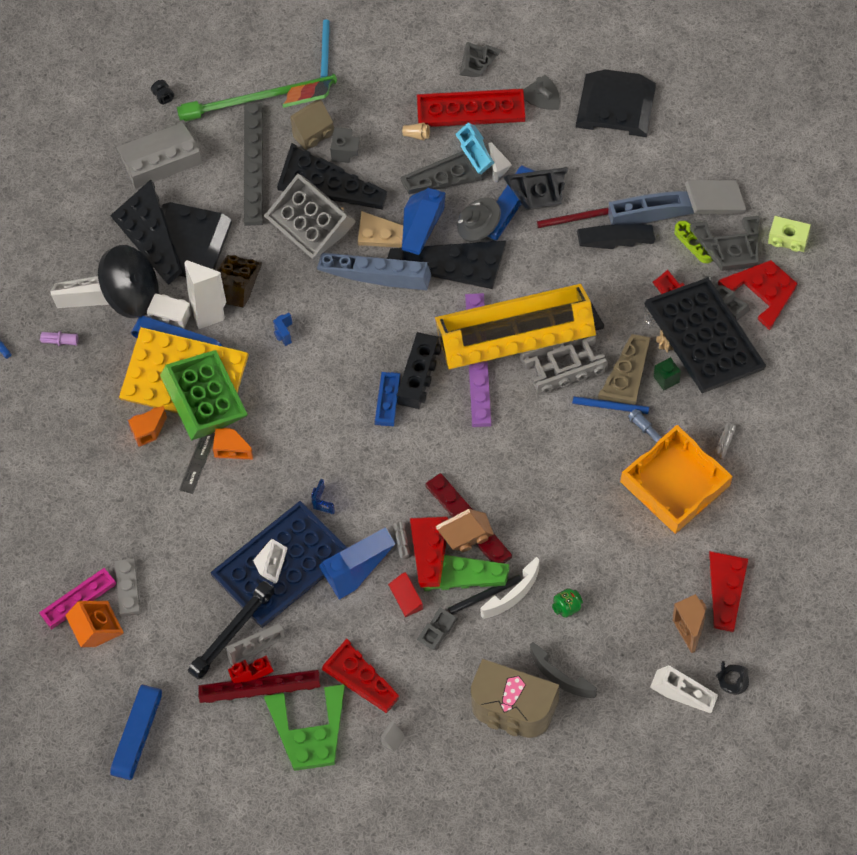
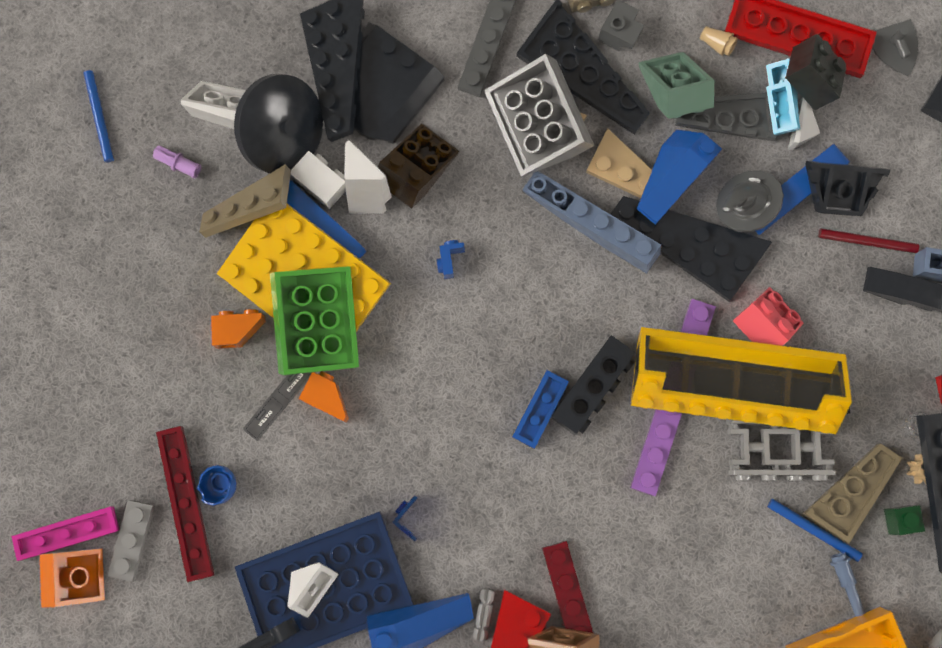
camera: 20 degrees right, 20 degrees up
(131, 335) = (251, 203): none -> dark tan wing
(157, 548) = (185, 504): none -> dark red plate
(176, 526) = (217, 485): none -> blue hair
(399, 165) = (678, 85): none -> sand green slope
(490, 124) = (816, 72): none -> pearl dark grey brick
(521, 284) = (769, 319): none -> coral slope

